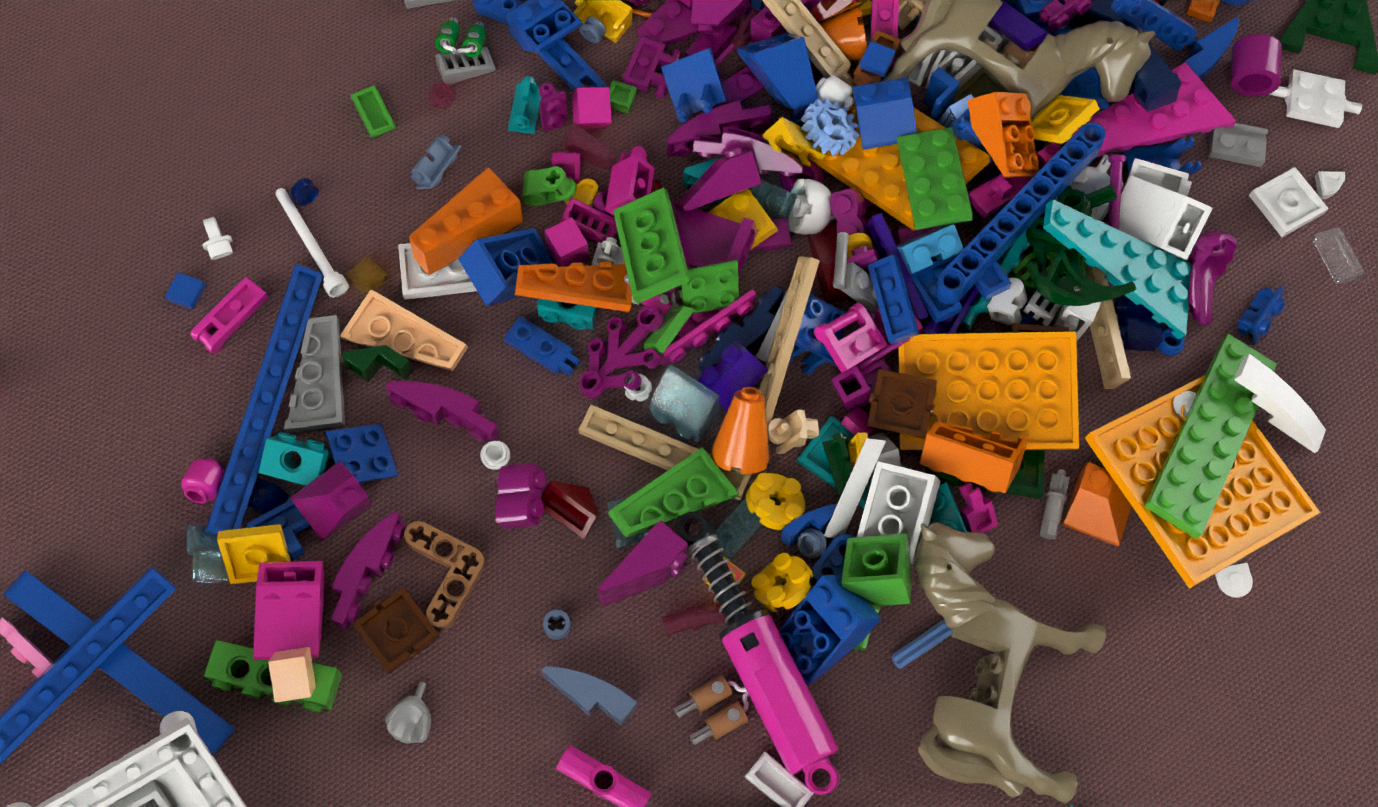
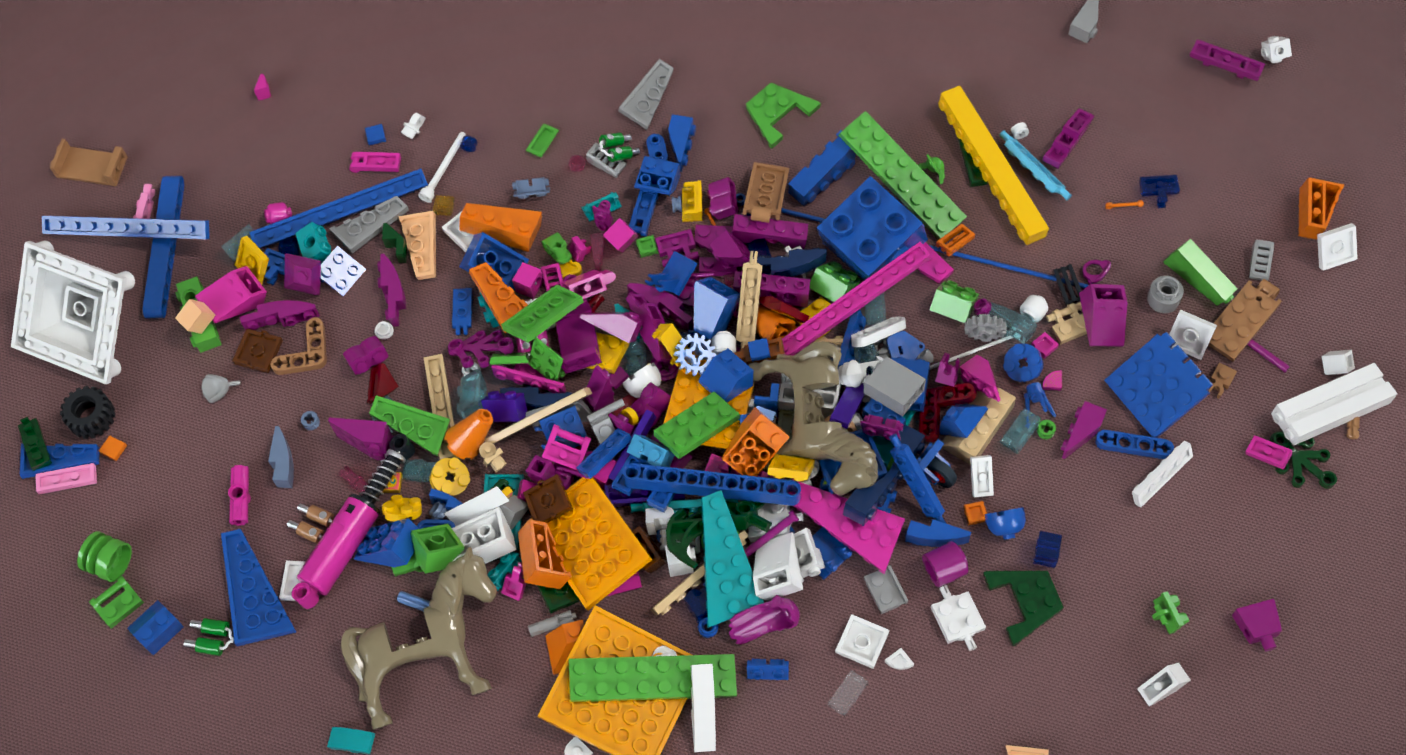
camera: 65 degrees right, 5 degrees down
(795, 242) = (601, 390): none -> magenta slope

